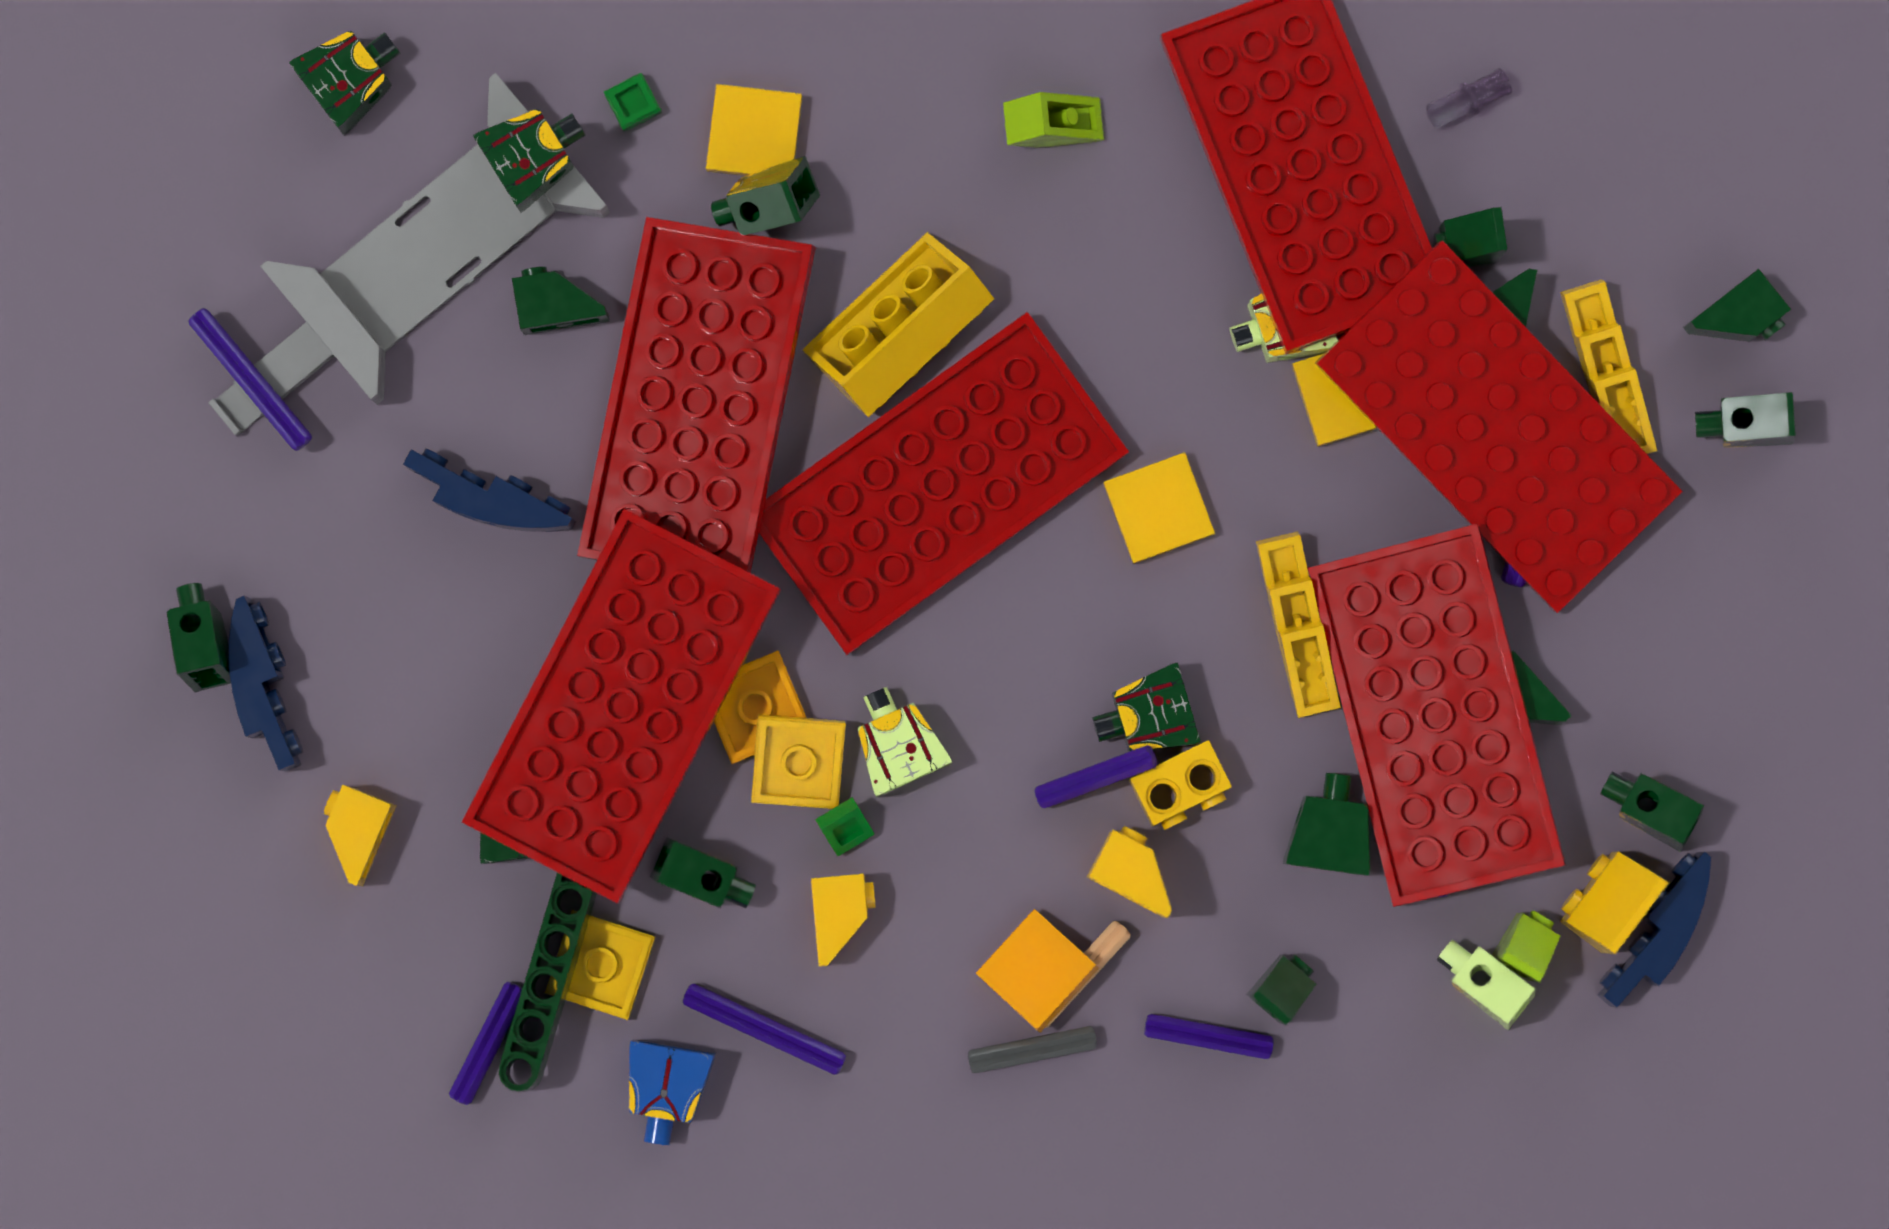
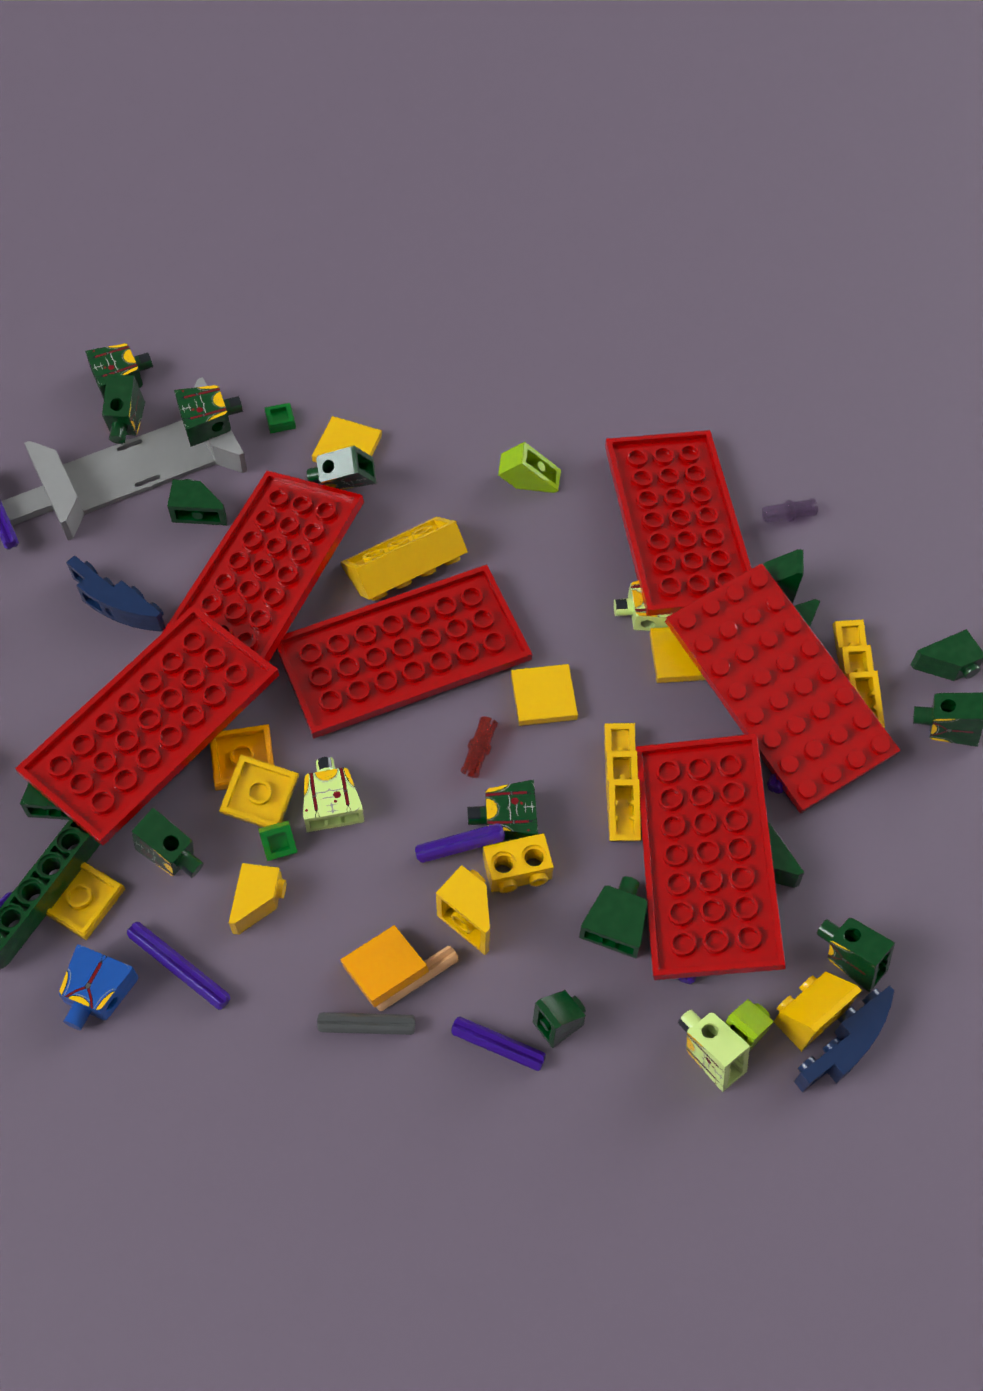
camera: 10 degrees right, 25 degrees down
(383, 141) = (122, 407): none -> dark green torso
(1086, 617) = (479, 747): none -> clear red pin

